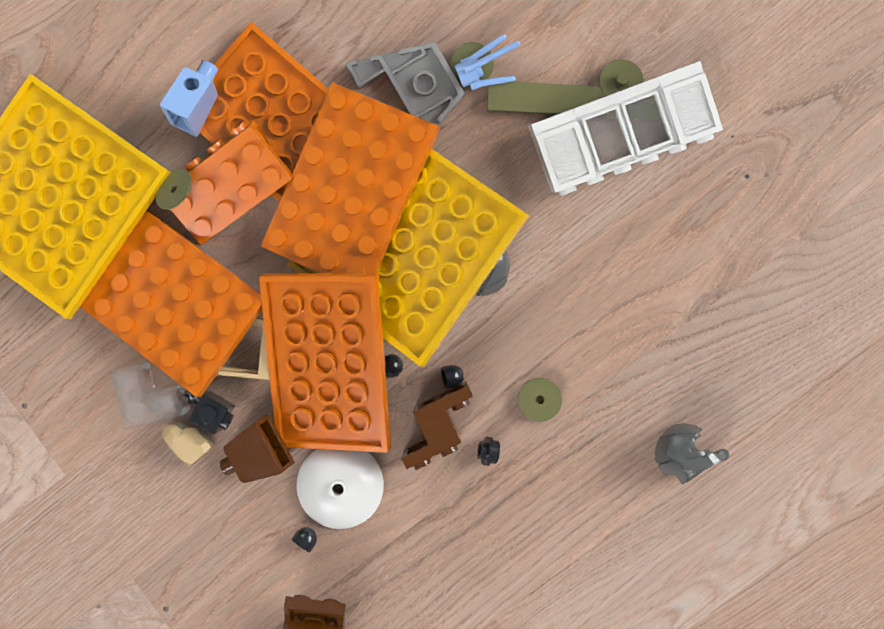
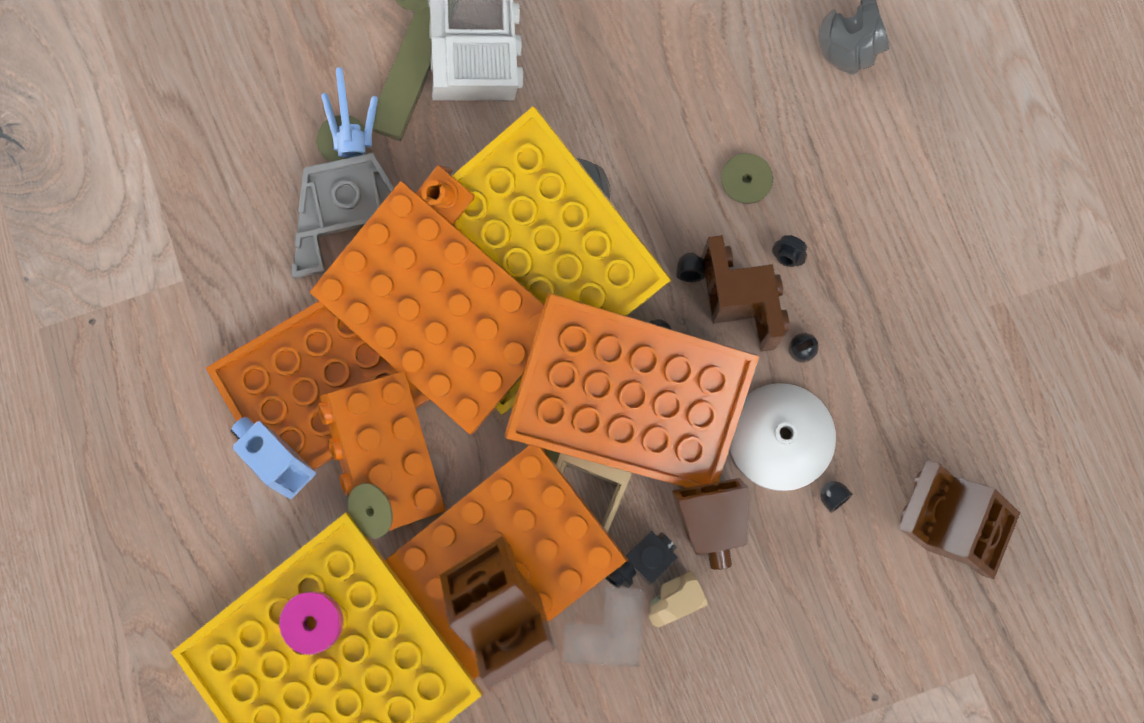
camera: 75 degrees left, 10 degrees down
(67, 167) = (294, 625): none -> dark pink piece
(123, 311) = (496, 612): none -> reddish brown bracket
(419, 478) = (806, 354): none -> black hinge
(439, 164) = (445, 194): none -> orange bracket

